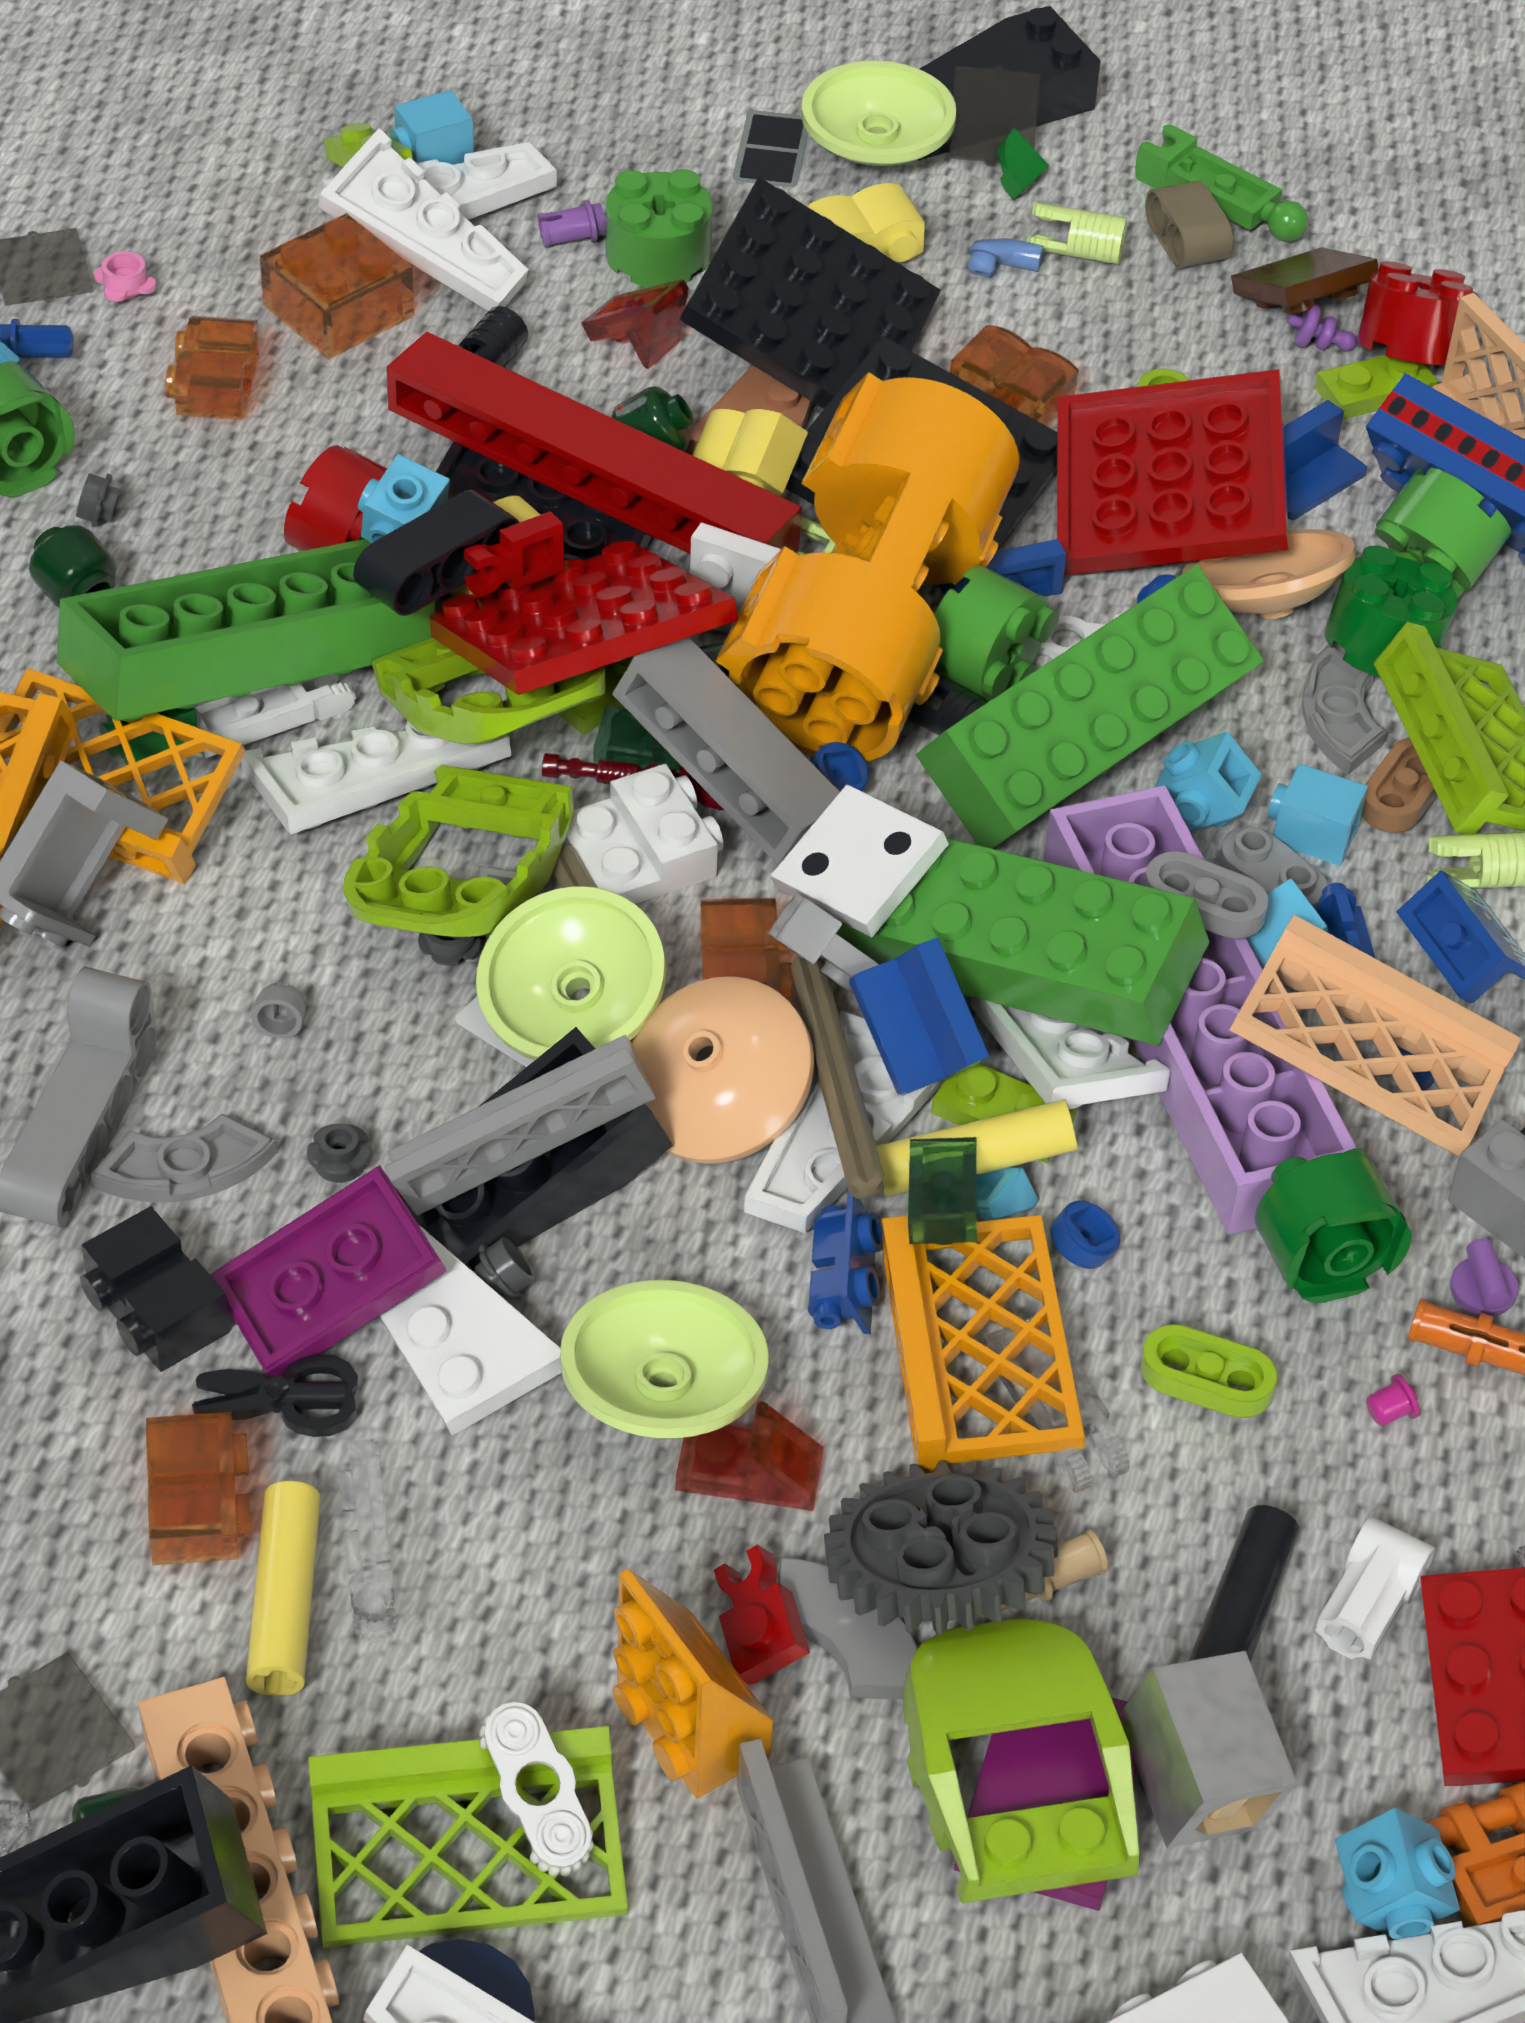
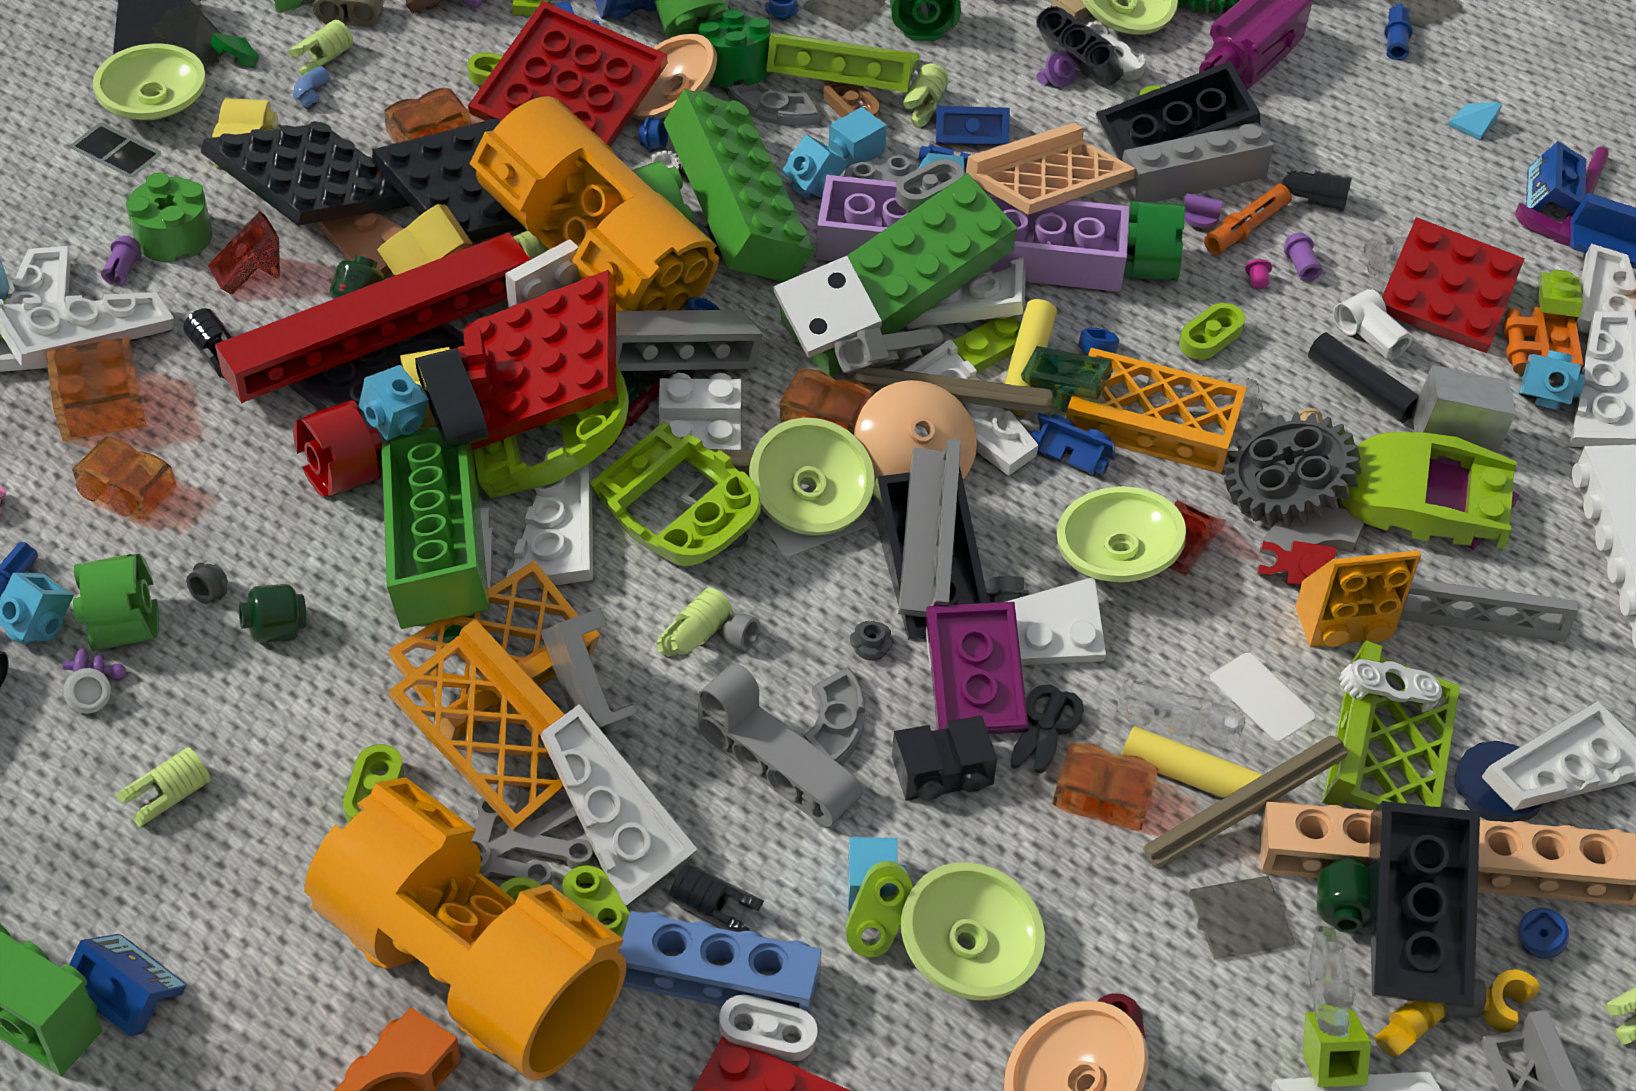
camera: 65 degrees left, 0 degrees up
(229, 1657) = (1245, 801): none -> dark tan axle
(263, 957) = (695, 623): none -> yellowish green hinge
(484, 1652) = (1262, 696): none -> white sticker
(918, 1018) = (943, 330): blue panel -> none
(1487, 1441) = (1300, 249): none -> medium lavender pin

